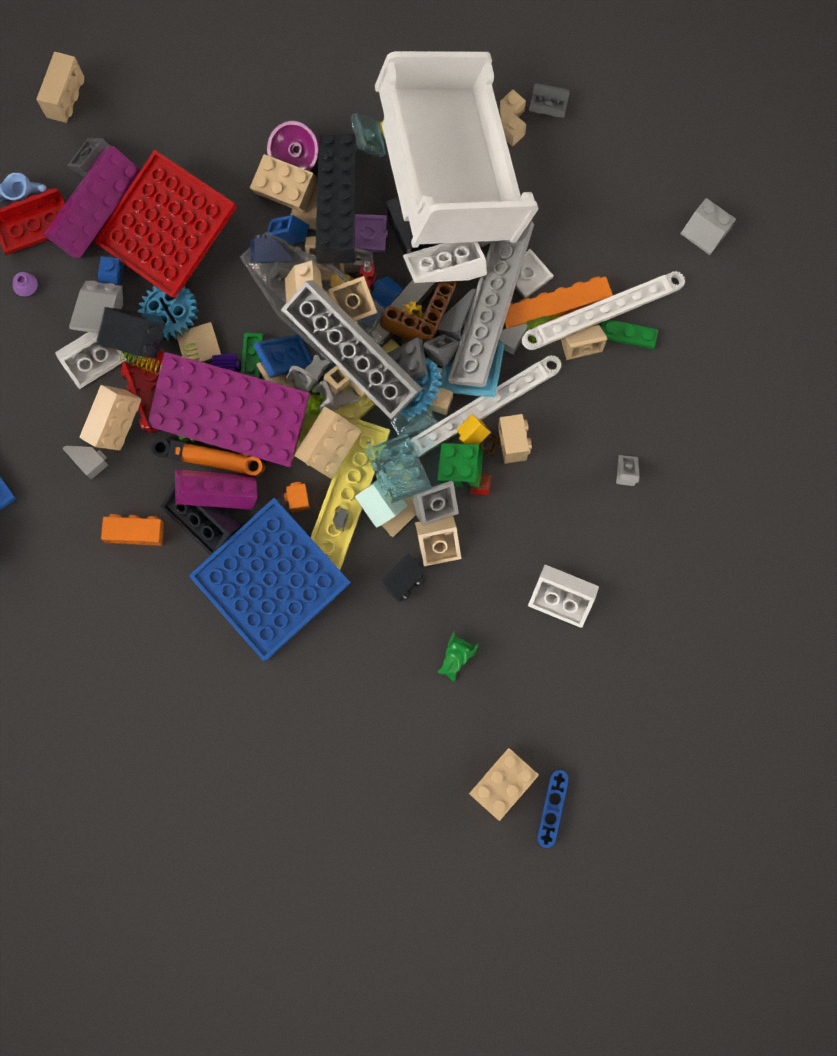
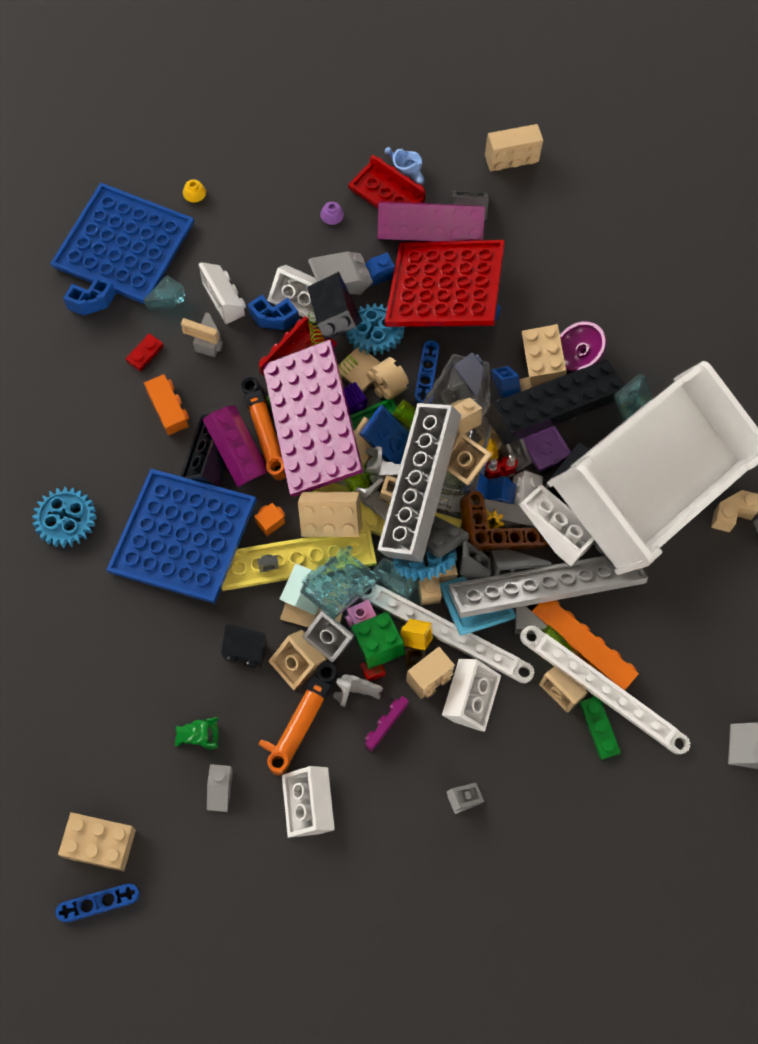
camera: 55 degrees right, 10 degrees down
(19, 475) = (165, 295): none -> clear light blue slope
(48, 423) = (222, 292): none -> white slope
(65, 524) = (144, 352): none -> red plate
(81, 462) = (199, 331): none -> tan tile
(104, 376) = (277, 317): none -> blue brick
(110, 418) = (250, 331): tan brick -> none
(179, 662) = (70, 502): none -> dark azure gear
(227, 325) = (388, 379): none -> tan brick
(237, 290) = (424, 372): none -> blue beam
(274, 327) = (405, 413): none -> clear neon green slope
(394, 268) = (526, 484): none -> white bracket
(431, 466) = (359, 613): none -> bright pink brick
(484, 508) = (354, 684): none -> light grey hair
(492, 565) = (315, 695): none -> orange piece
(512, 661) = (219, 787): none -> light grey slope
(532, 275) = (599, 608): white tile -> none
(532, 498) = (385, 723): none -> magenta plate
(547, 417) = (471, 694): none -> white slope

